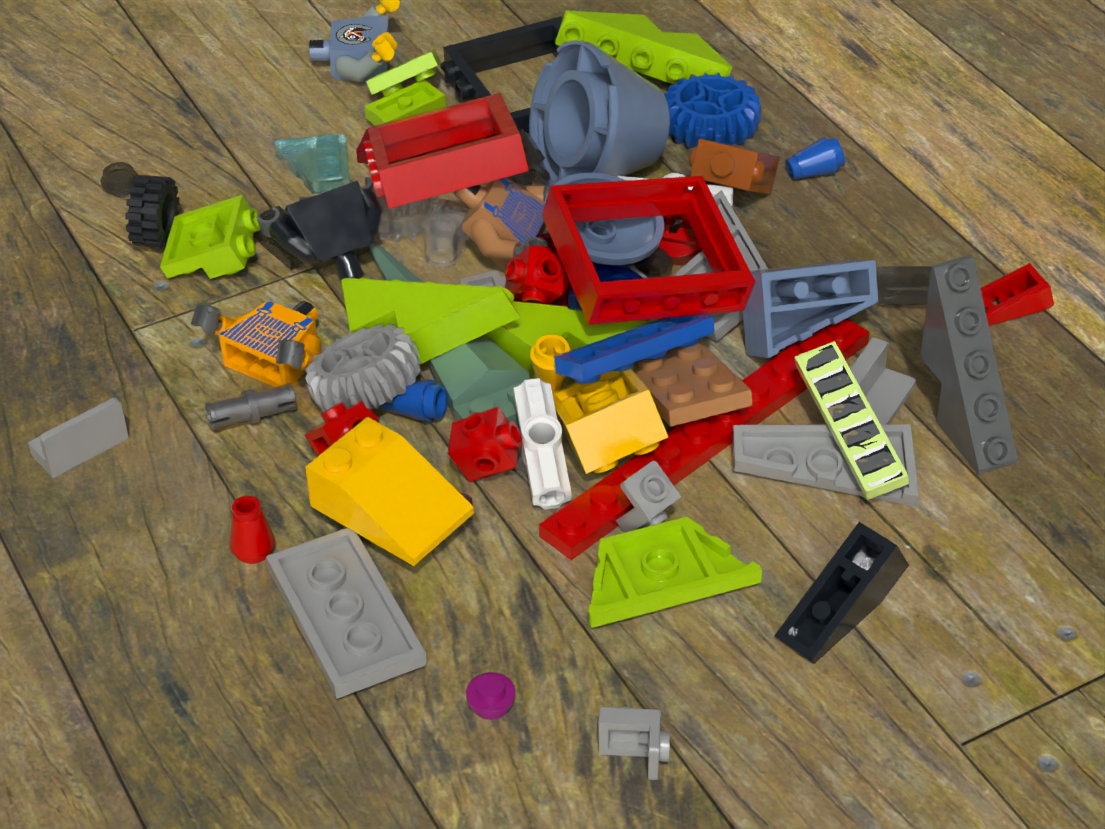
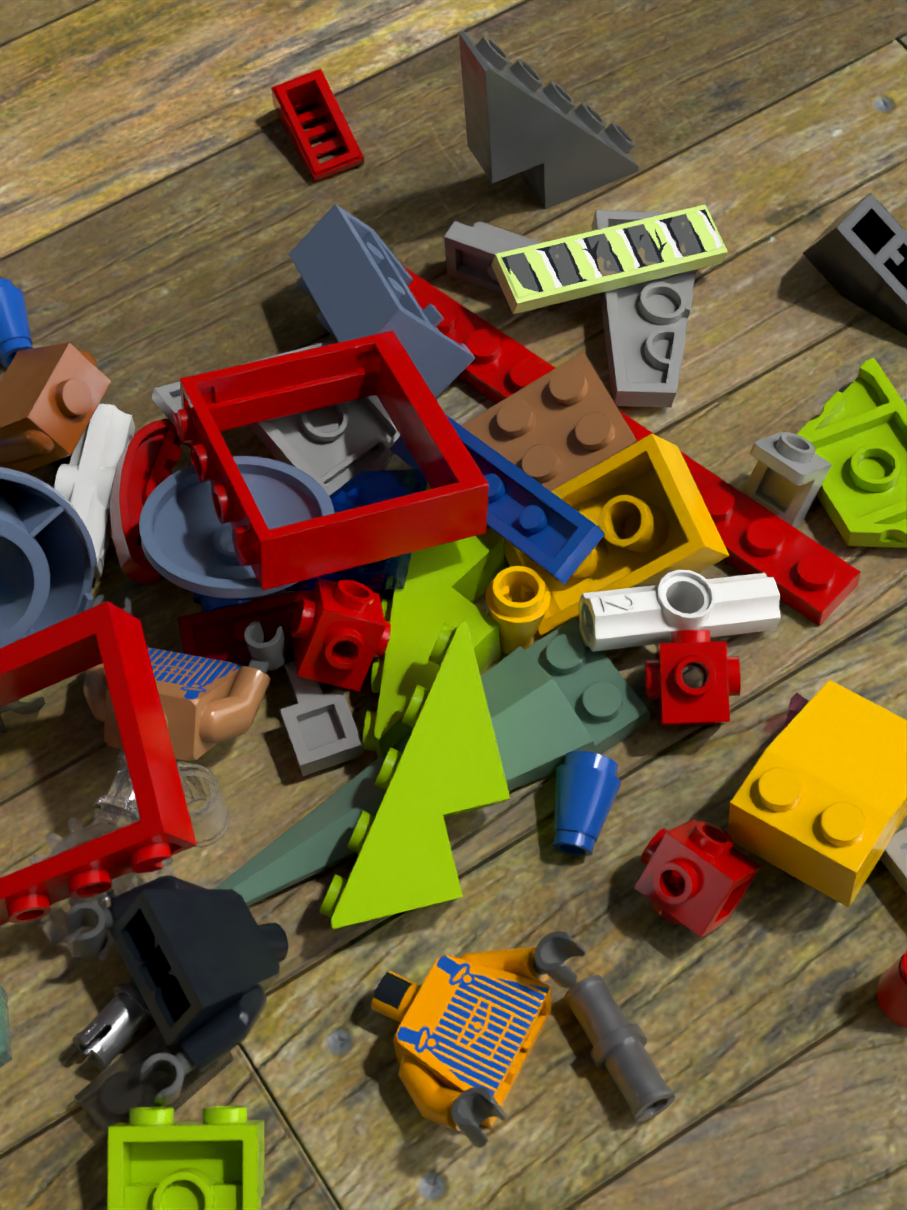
camera: 90 degrees left, 15 degrees up
(364, 367) = (570, 836): light grey gear -> none
(903, 285) = (296, 201): clear smoke plate -> none

